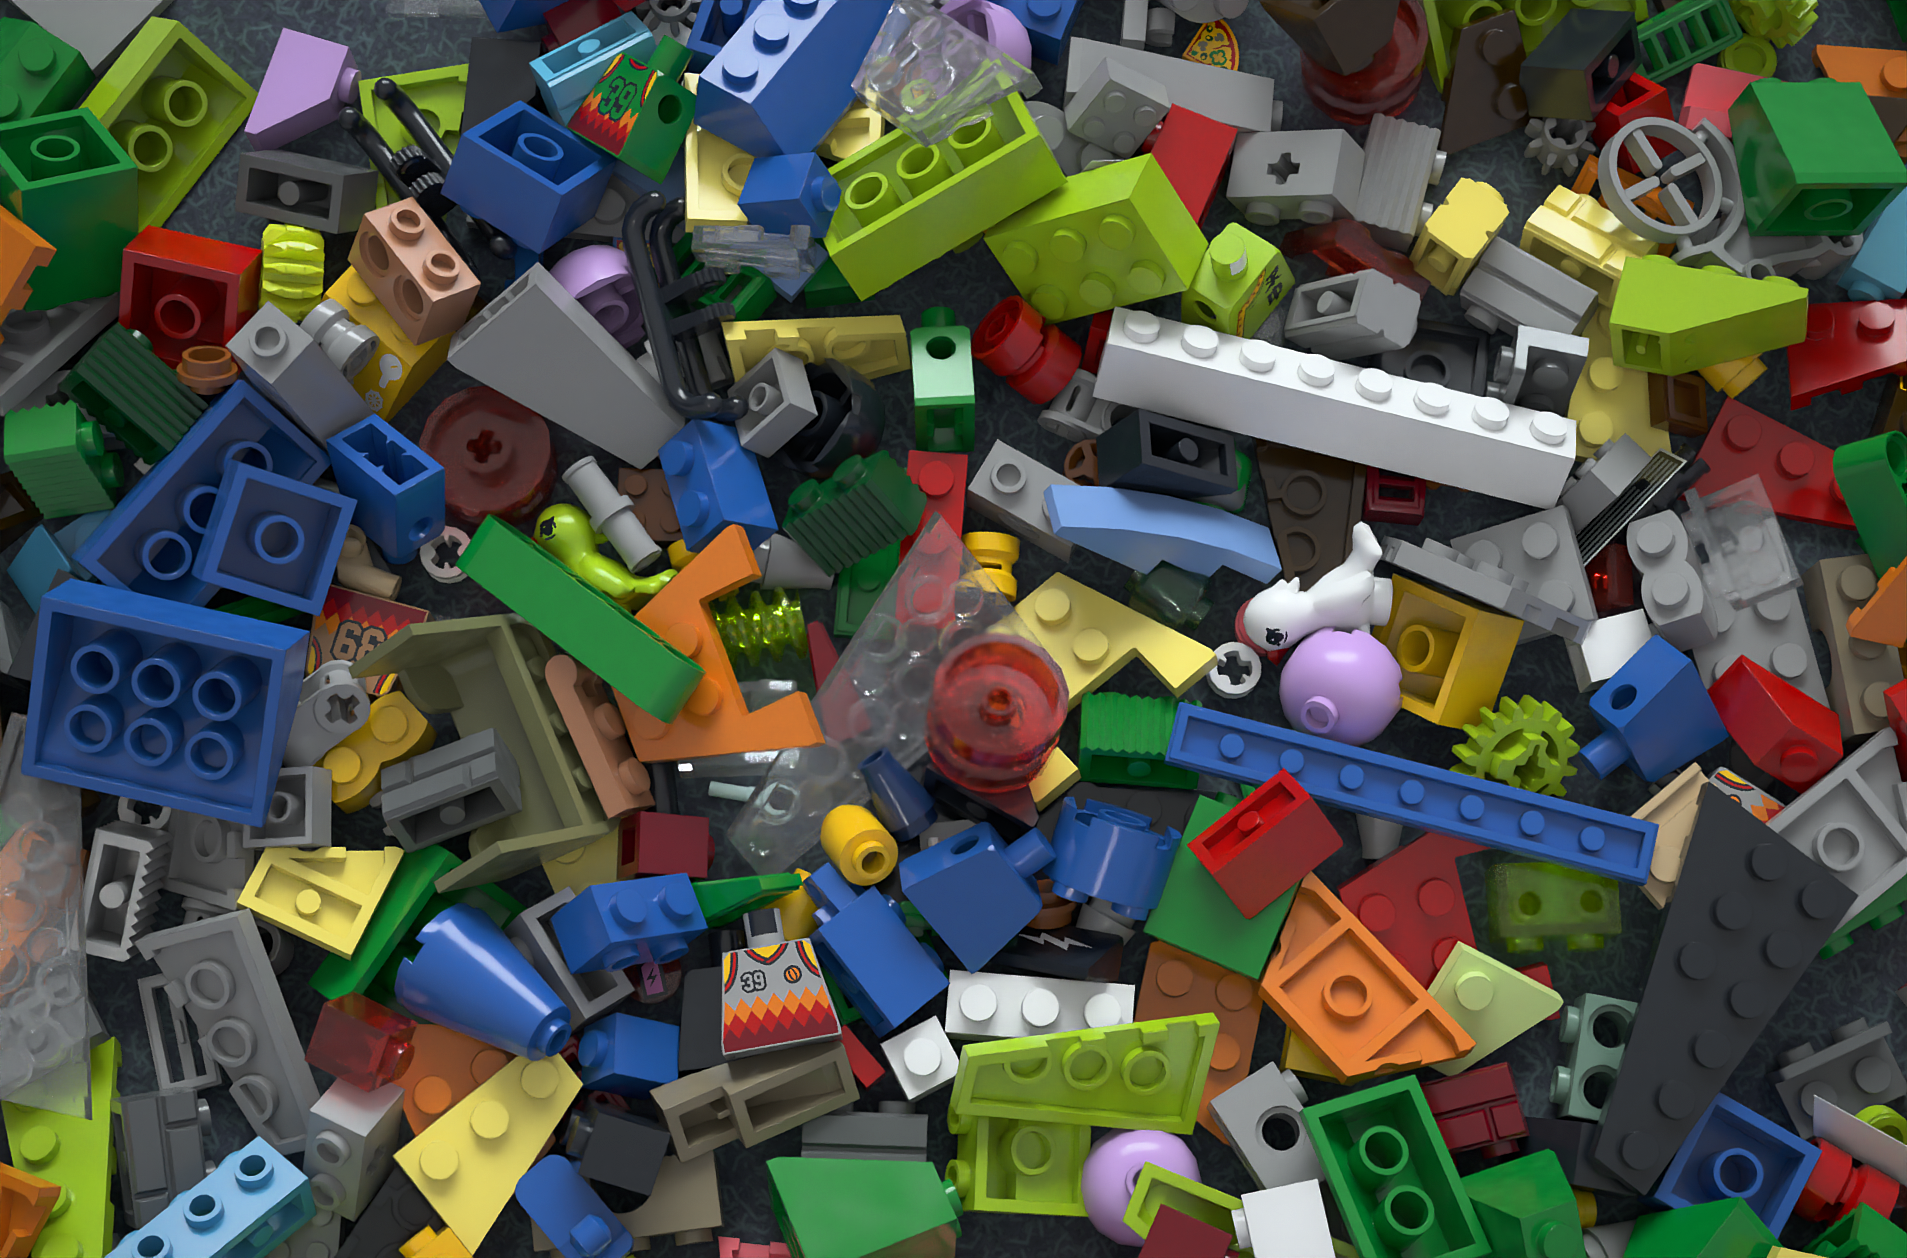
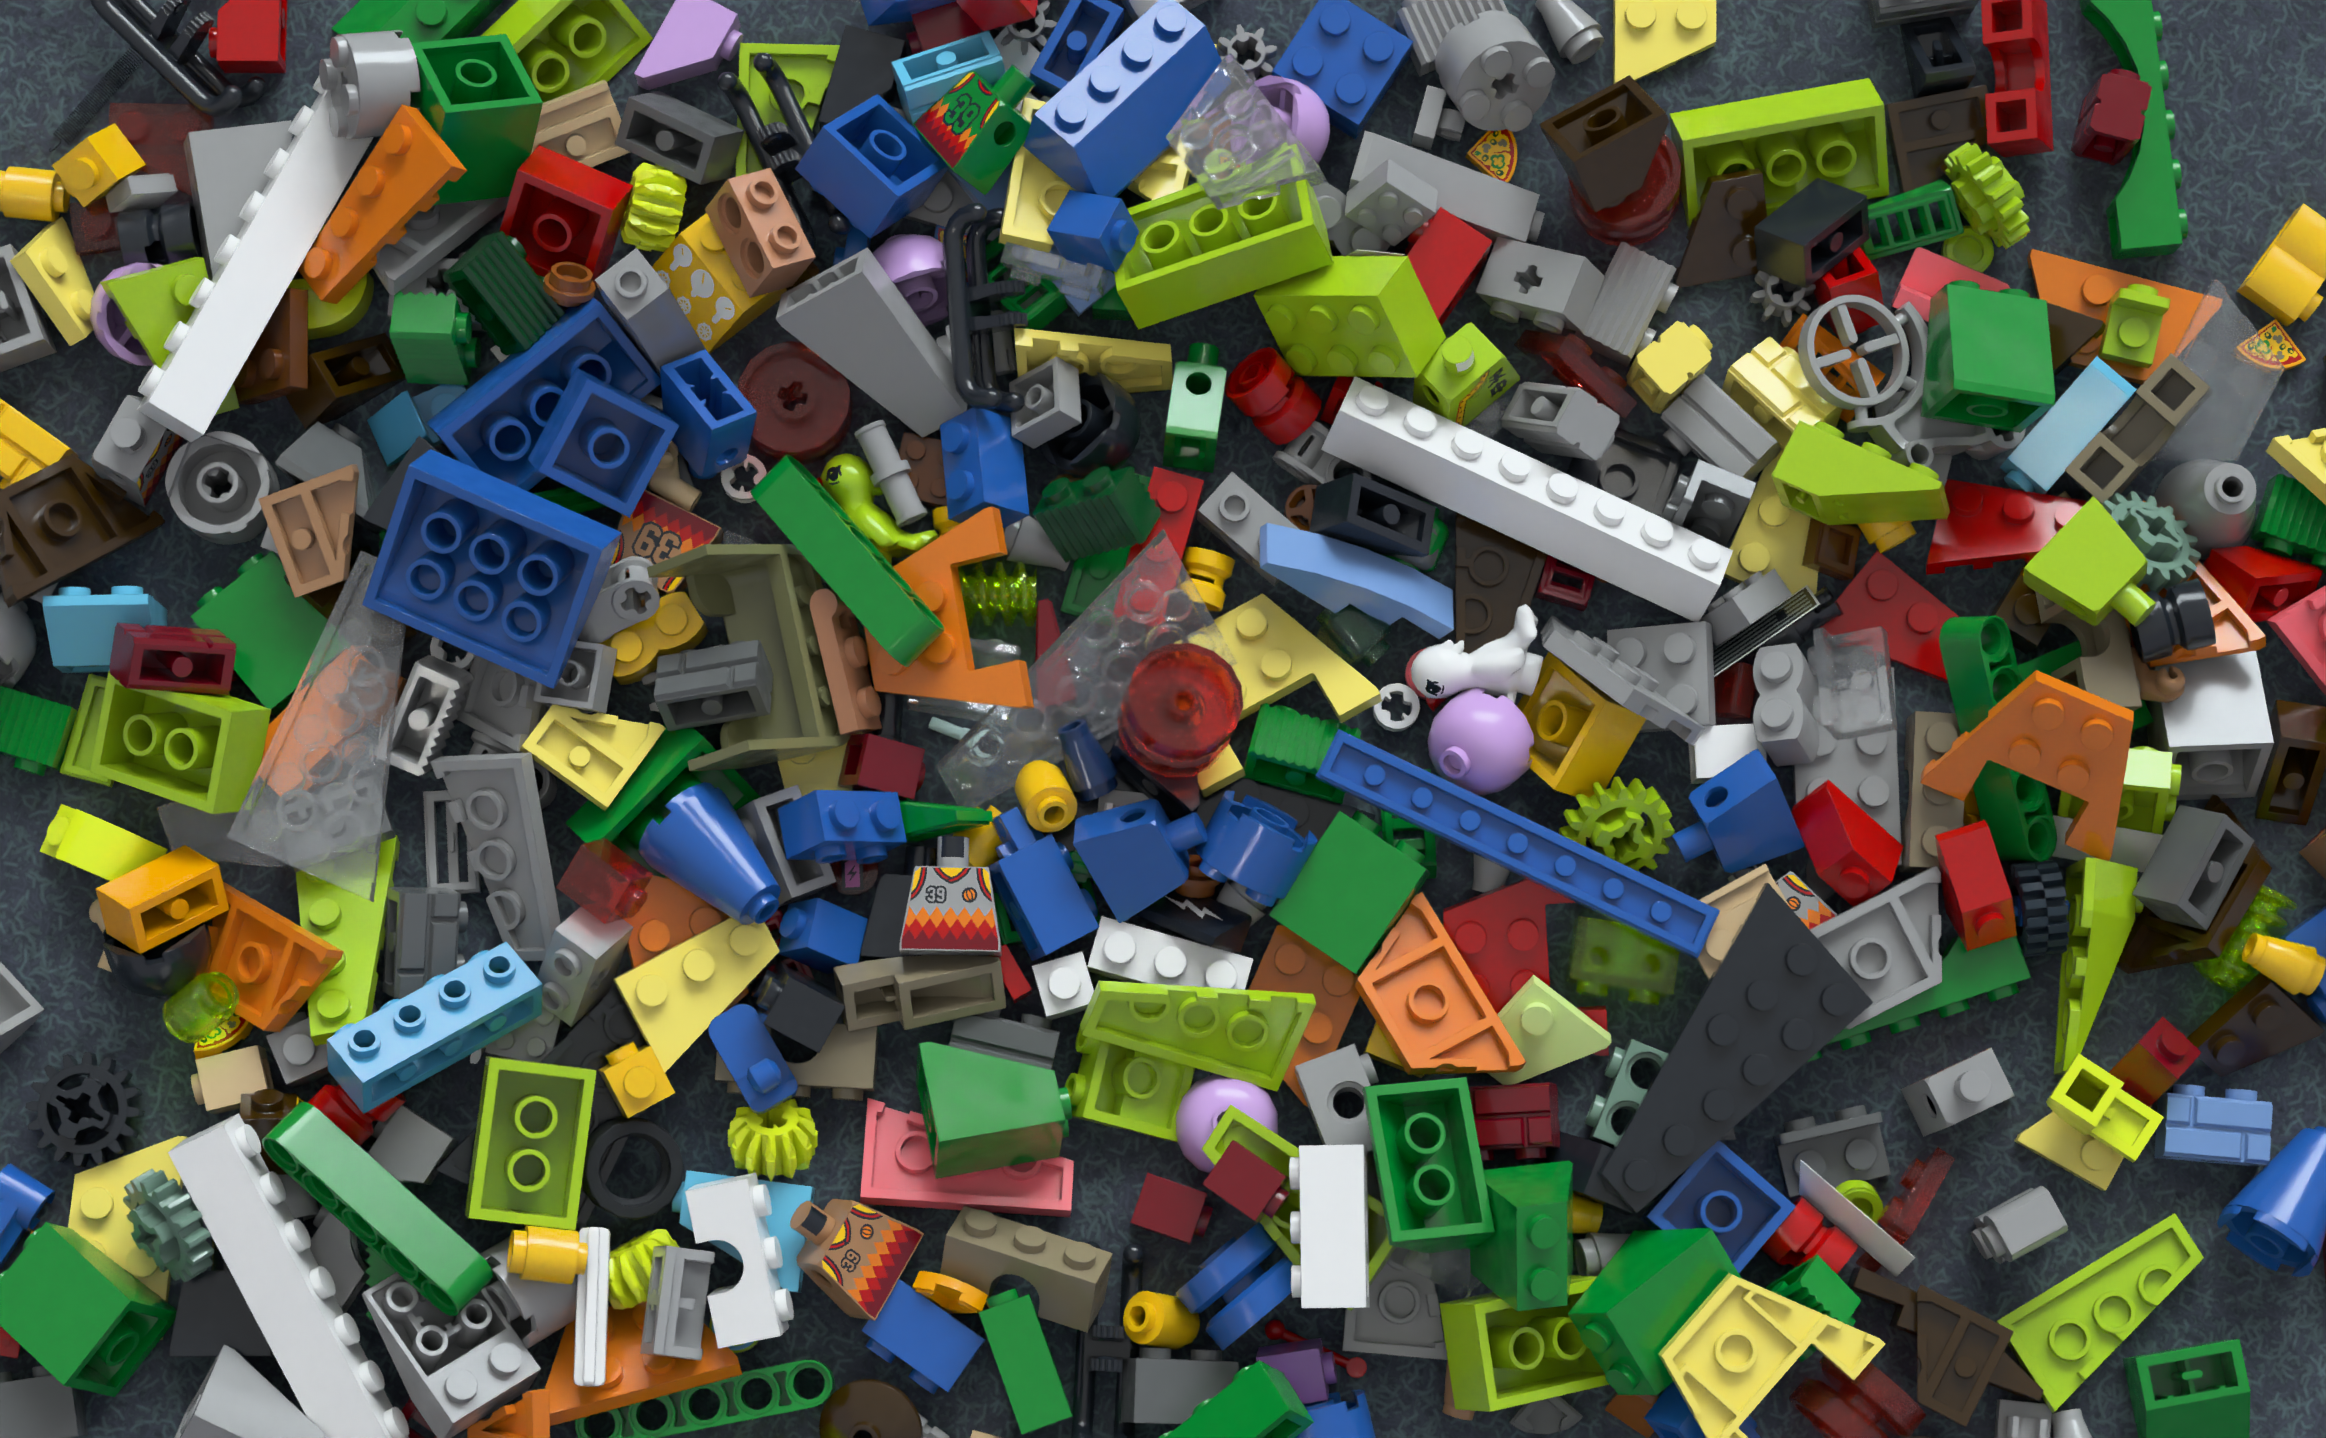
camera: 10 degrees right, 5 degrees up
(194, 199) = (581, 125): none -> tan plate
(344, 342) = (685, 278): light grey wheel -> none
(1266, 843) = (1384, 863): red panel -> none

